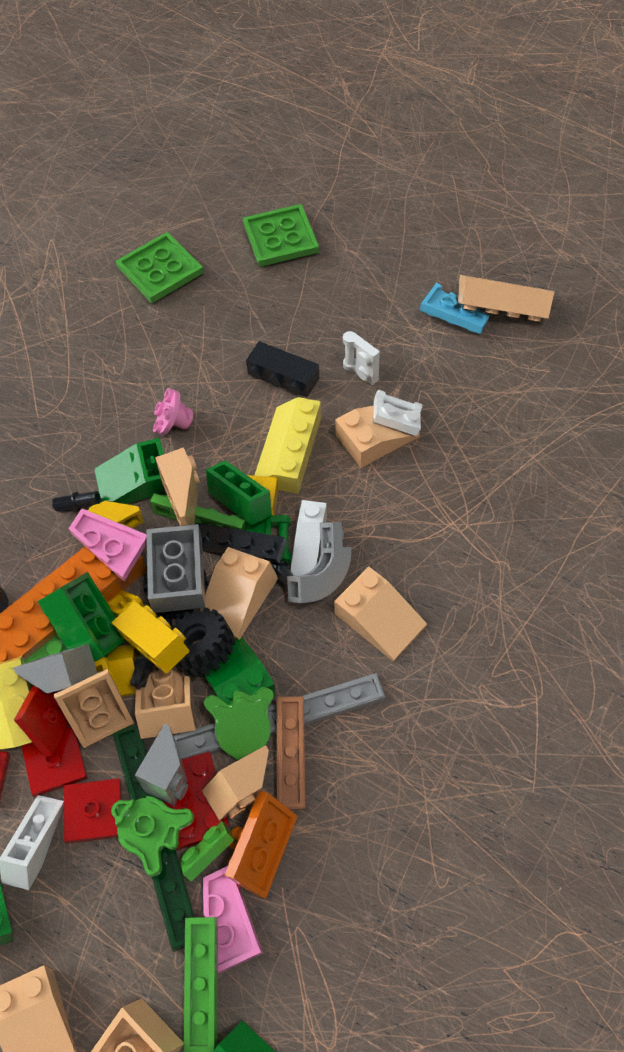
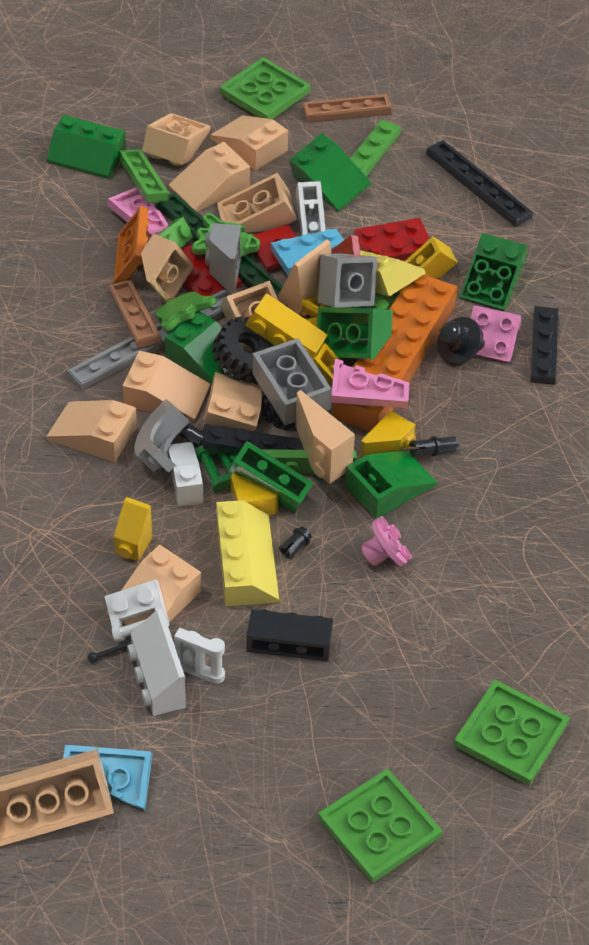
camera: 155 degrees right, 10 degrees down
(66, 778) = (293, 249): none -> medium azure wing
(88, 877) = (259, 206): none -> light nougat slope
(118, 956) = (212, 177): none -> light nougat slope
(242, 446) = (300, 537): none -> black pin
(295, 640) = (157, 379): none -> light nougat slope
(377, 482) = (133, 529): none -> yellow slope
(395, 362) = (157, 665): none -> white slope
(441, 400) = (93, 656): none -> black hinge

